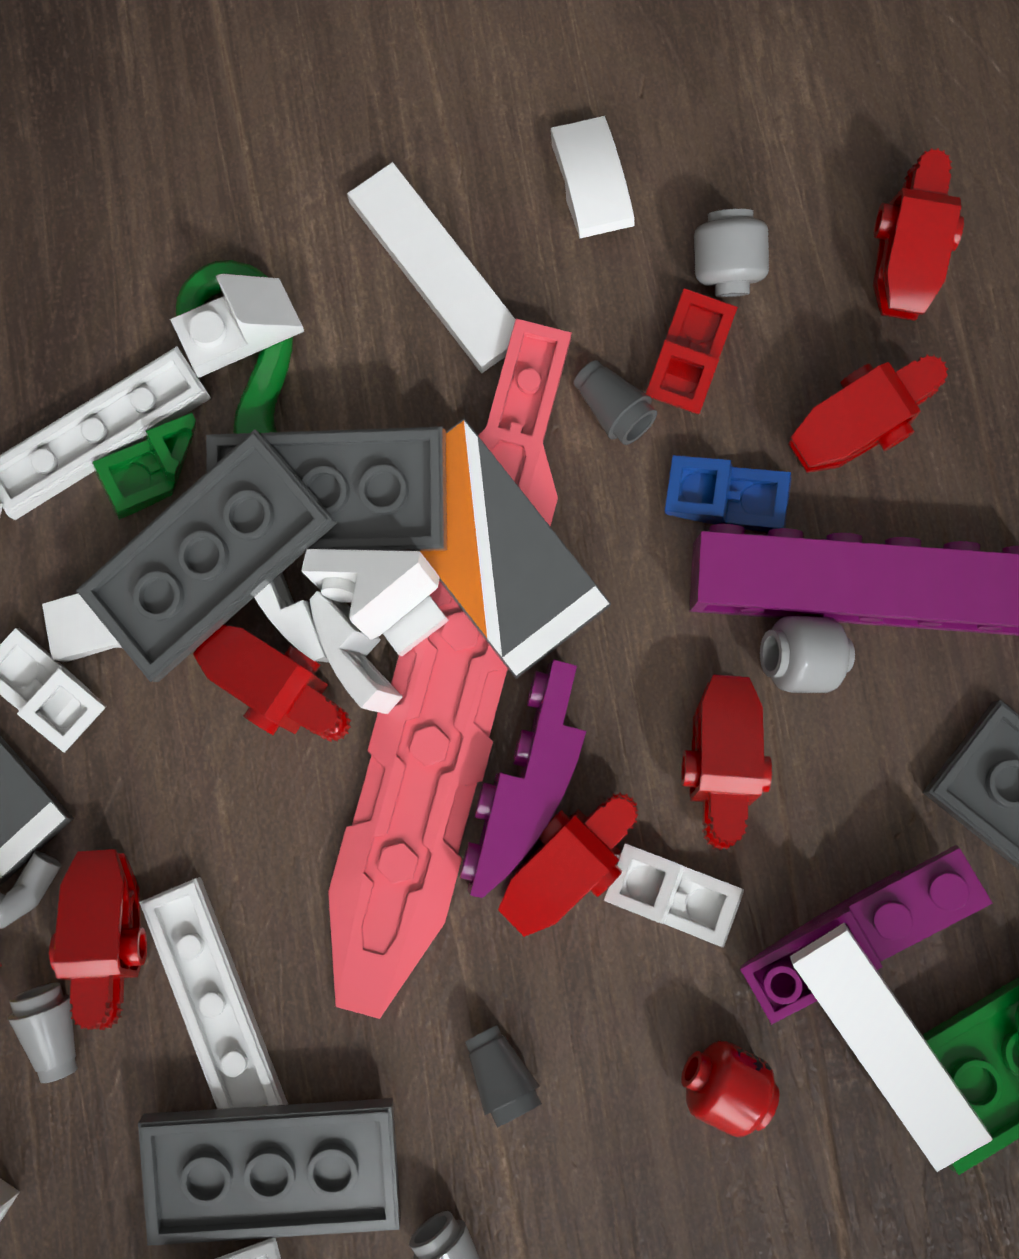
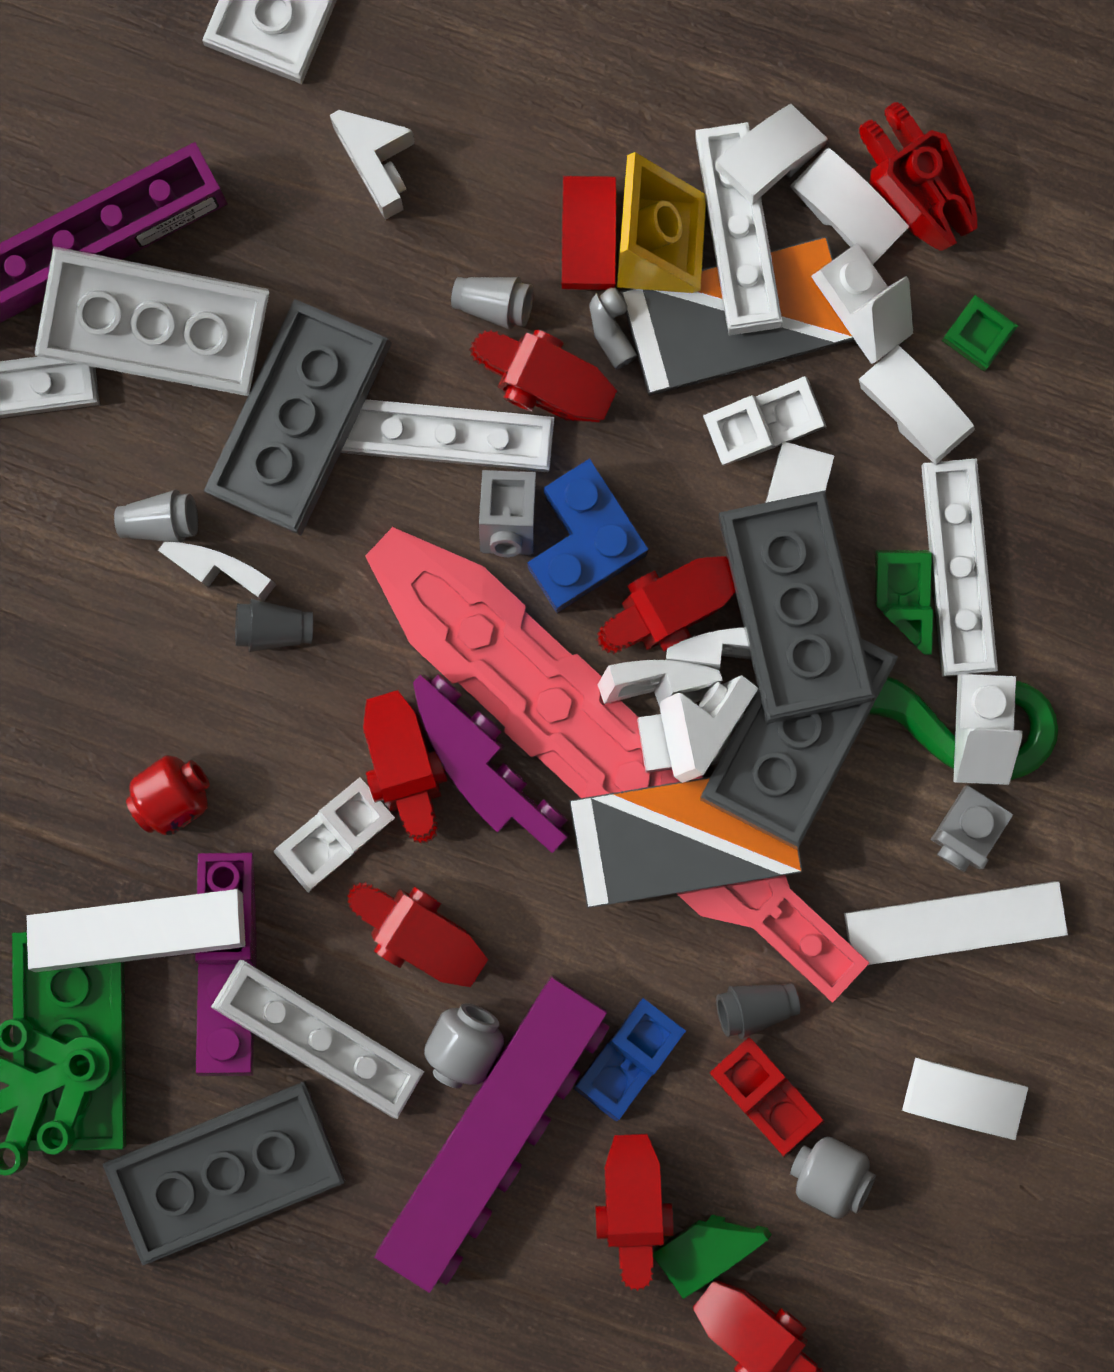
camera: 120 degrees right, 5 degrees up
(234, 791) = (598, 542): none -> blue brick
(261, 896) = (507, 512): none -> light grey bracket
(342, 296) = (970, 830): none -> light grey bracket
(472, 1180) = (207, 563): none -> white slope
(861, 328) = (706, 1252): none -> green slope
(886, 803) = (317, 1039): none -> white tile

